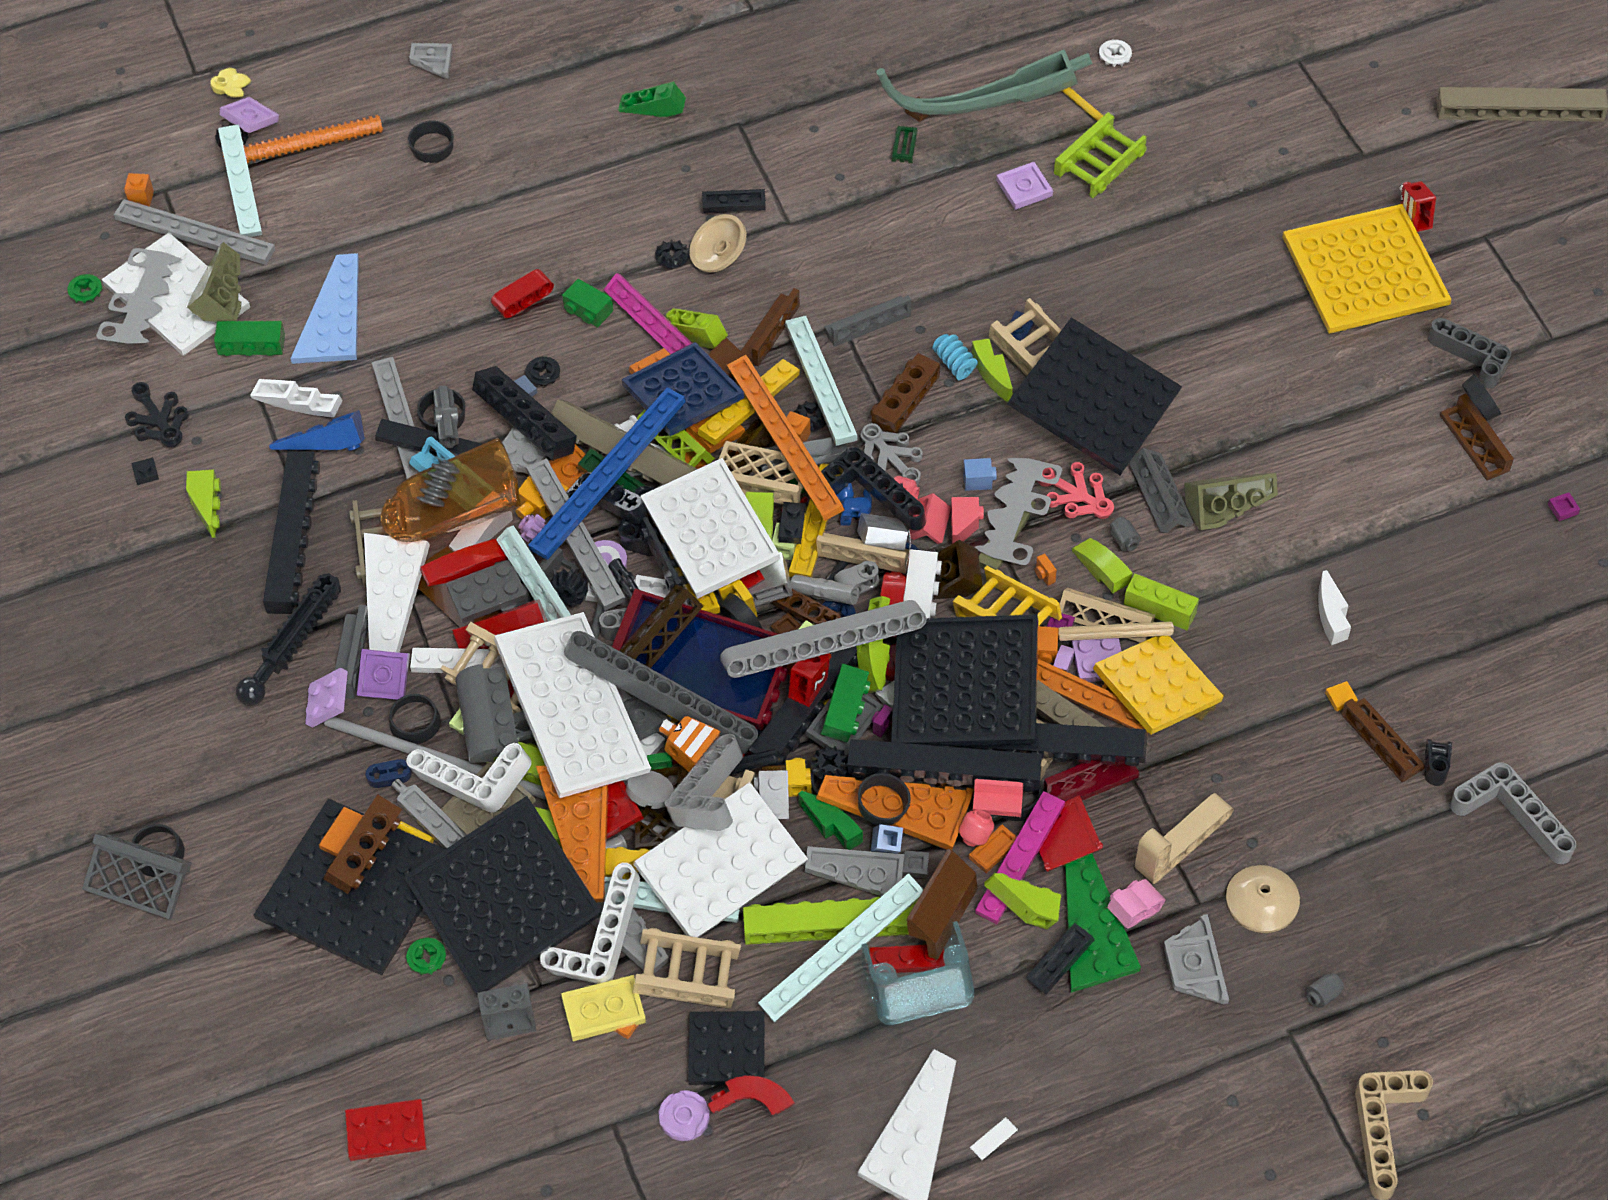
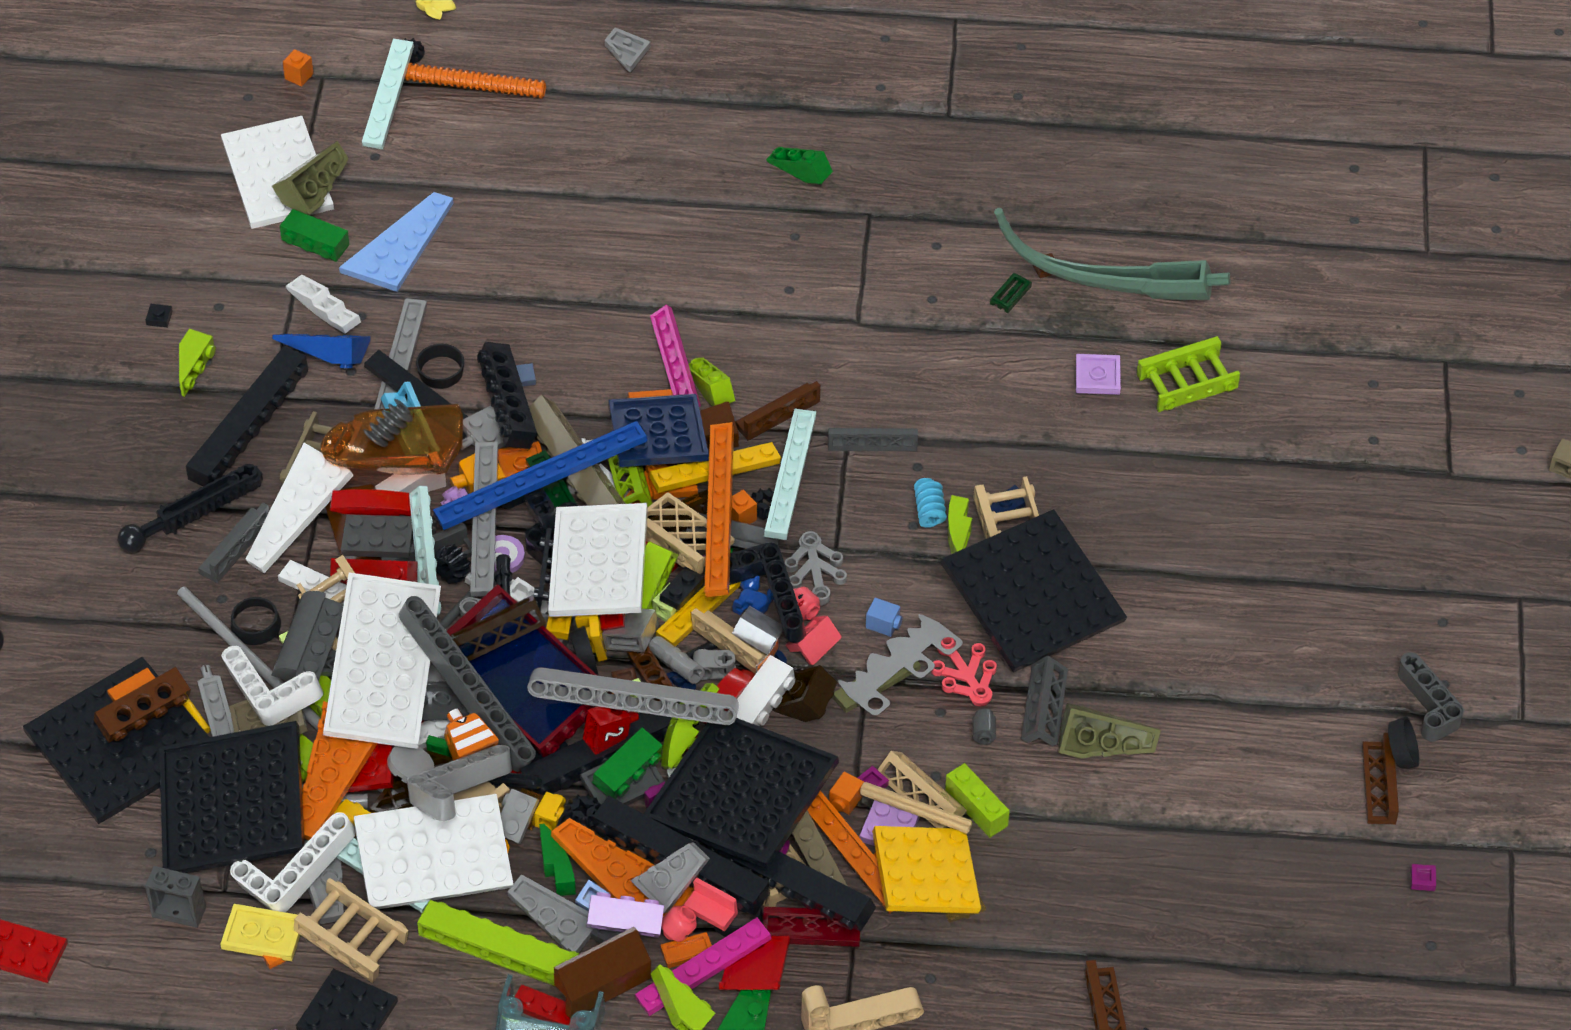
camera: 25 degrees right, 5 degrees down
(82, 282) = (204, 130): green gear -> none
(141, 306) = (239, 170): light grey piece -> none
(157, 418) = (197, 292): black plant -> none
(193, 231) = (324, 123): light grey plate -> none
(249, 114) = (432, 37): lavender plate -> none
(326, 697) = (189, 570): lavender plate -> none
(383, 674) = (249, 570): medium lavender plate -> none
(388, 773) = (205, 656): dark blue beam -> none
(415, 955) = (136, 818): green gear -> none
(426, 128) = (578, 109): black tyre -> none
(445, 416) = (435, 371): dark grey piece -> none
(522, 293) = (575, 290): red beam -> none
(538, 365) = (551, 359): black gear -> none
(587, 303) = (626, 322): green piece -> none
(679, 258) = (736, 314): black gear -> none
(718, 243) = (775, 314): tan dish -> none
(733, 200) = (817, 282): black plate -> none
(841, 948) = (490, 971): light aqua plate -> none
(889, 781) = (608, 841): black tyre -> none
(905, 393) = (863, 518): reddish brown brick -> none
(930, 841) = (625, 913): none -> brick
(951, 788) = (672, 876): none -> light grey wing
(965, 517) = (845, 651): coral slope -> none
(1011, 588) = (839, 716): yellow fence -> none
(1045, 570) = (888, 727): orange plate -> none
(1064, 658) = (855, 813): lavender piece -> none
(1082, 103) = (1204, 318): yellow bar -> none
(1103, 564) = (945, 744): lime slope -> none
(1113, 46) = (1268, 278): white gear -> none
(1333, 610) = (1134, 875): white slope -> none
(1340, 694) = (1093, 952): light orange tile -> none
(1366, 268) = (1378, 580): yellow plate -> none
(1419, 204) = (1466, 532): red torso -> none

